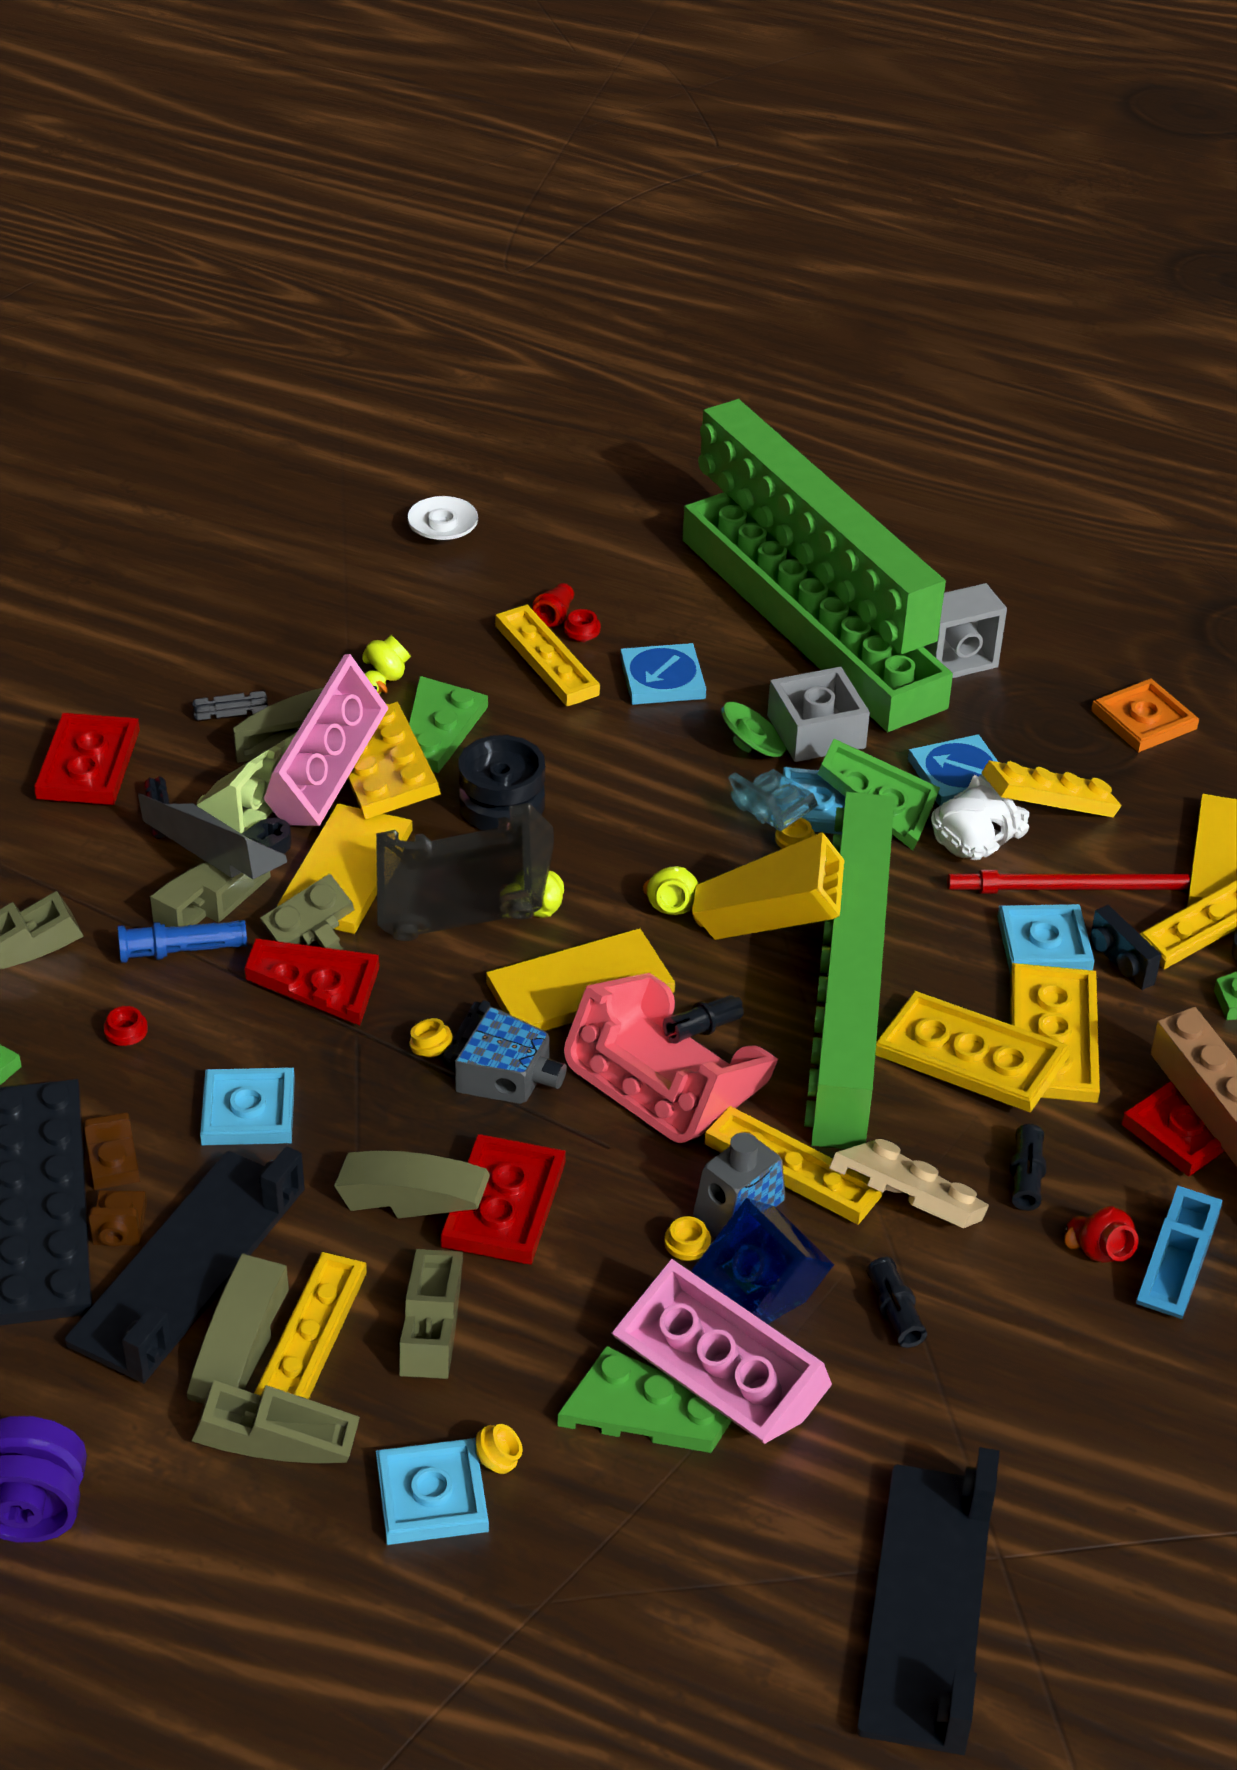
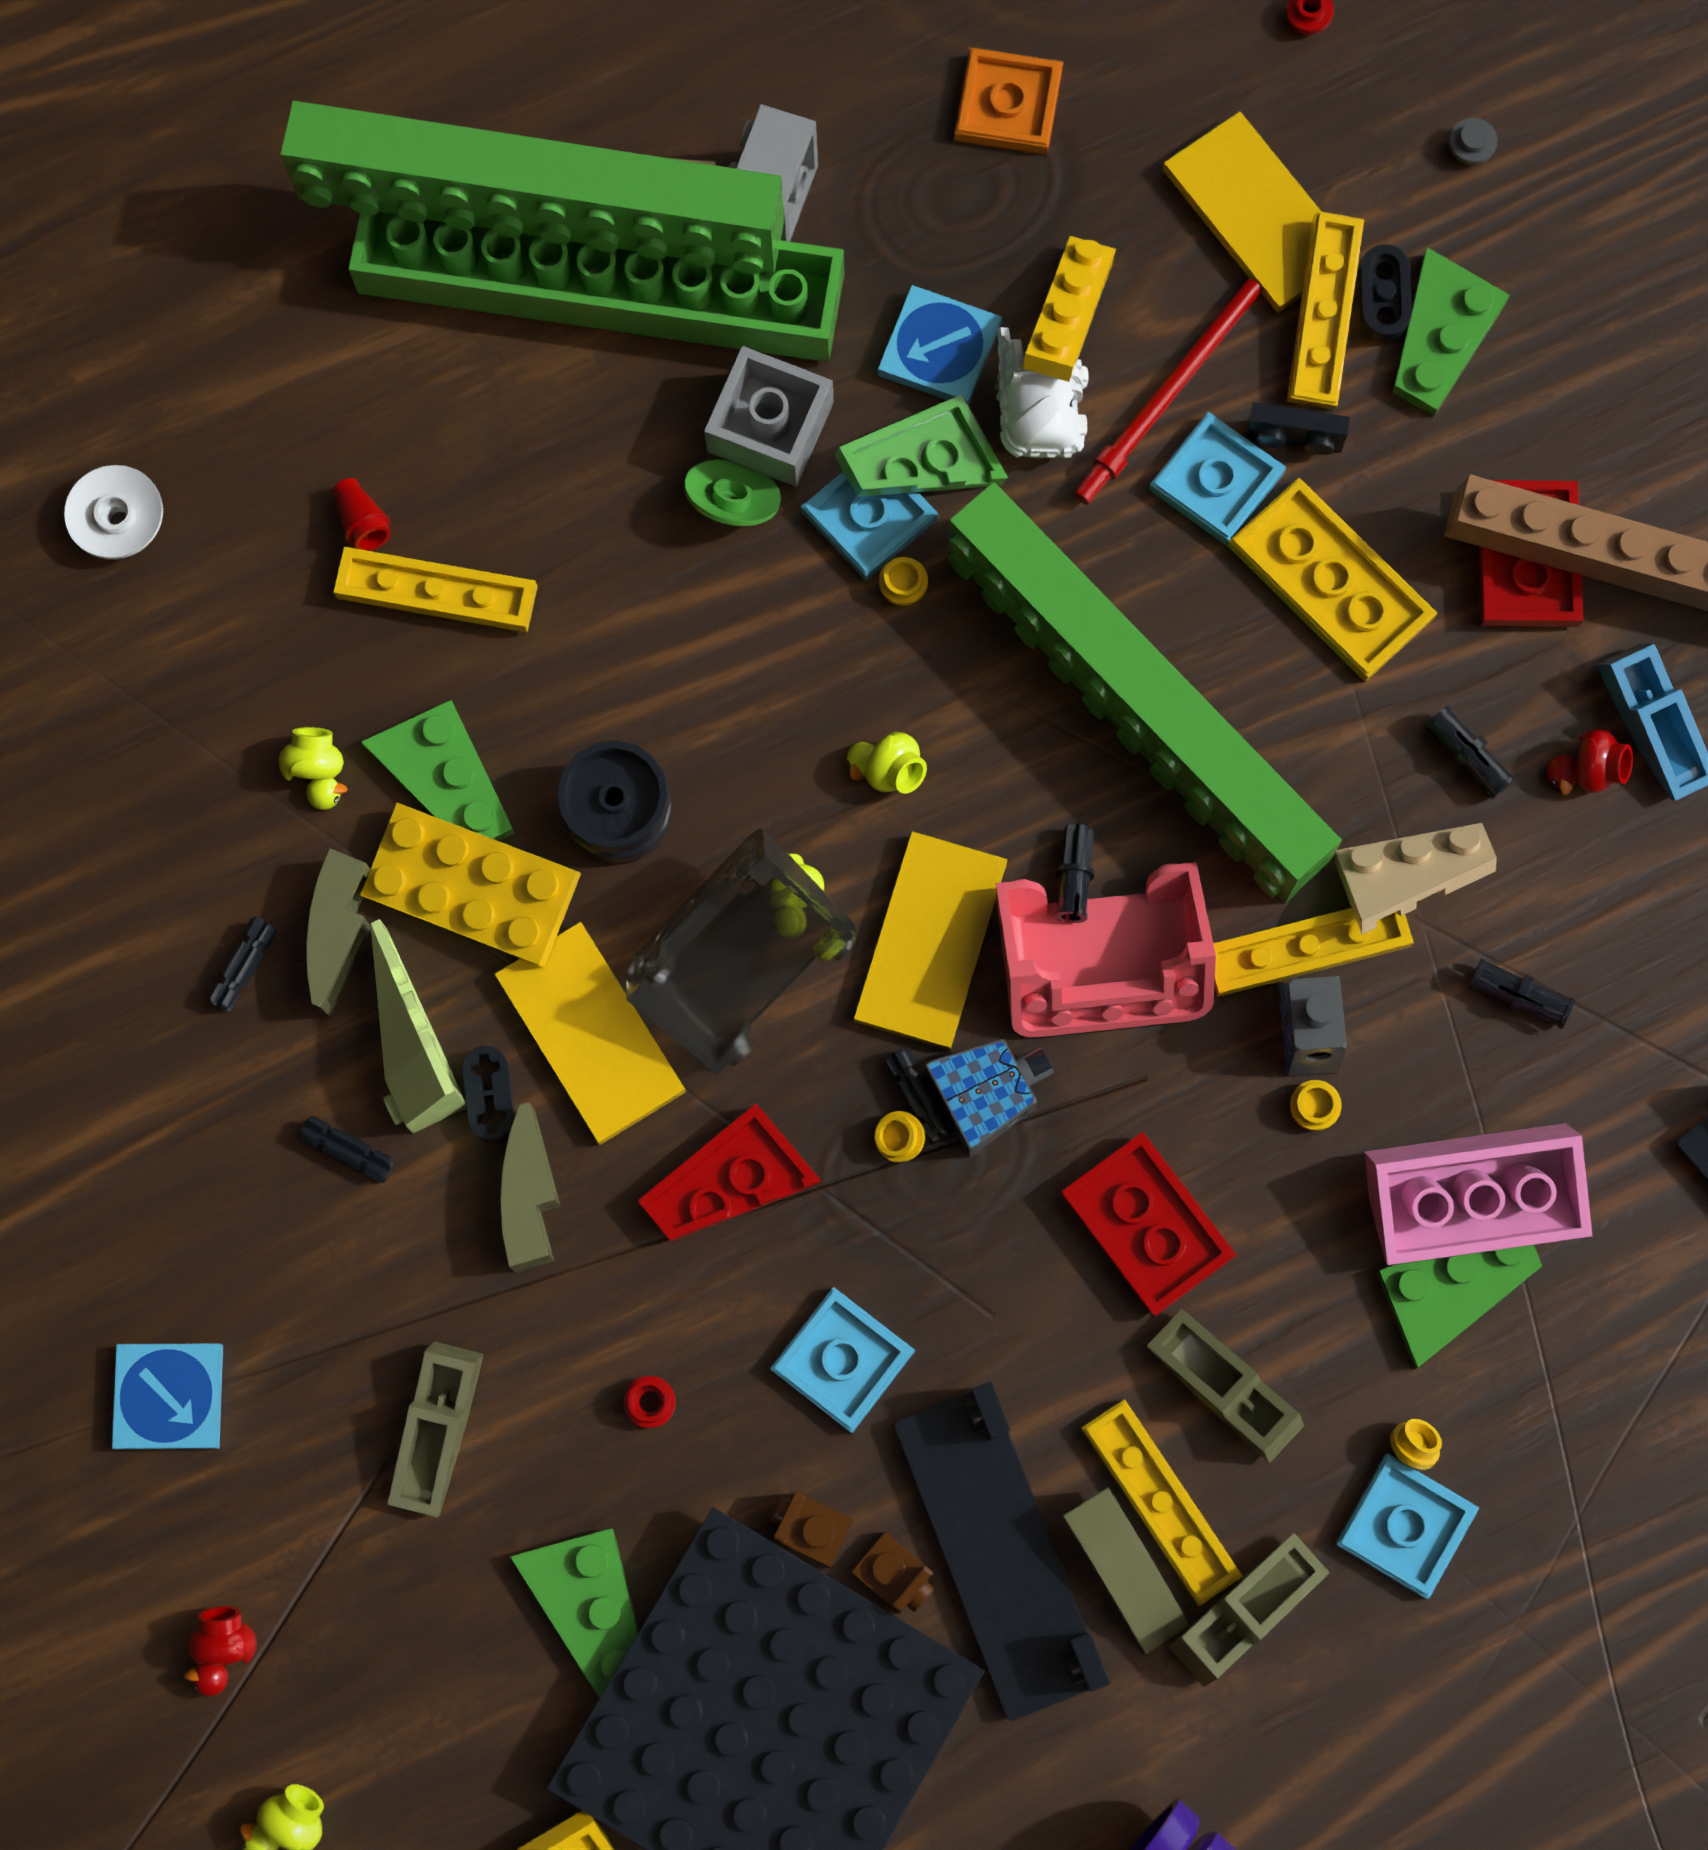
camera: 45 degrees left, 35 degrees up
(87, 758) = (211, 1169): red plate -> none
(161, 940) = (558, 1288): blue pin -> none
(210, 838) = (484, 1151): dark grey wedge -> none
(310, 915) = (648, 1126): olive hinge -> none
(326, 747) = (436, 943): bright pink slope -> none
(410, 1183) = (1079, 1296): olive slope -> none
(582, 625) = (415, 502): red plate -> none
(662, 674) = (557, 497): tile -> none
(763, 1262) = (1401, 1071): clear blue slope -> none
(772, 798) = (853, 563): clear light blue bracket -> none
(773, 892) = (1016, 688): yellow slope -> none
(972, 1051) = (1309, 674): yellow tile -> none

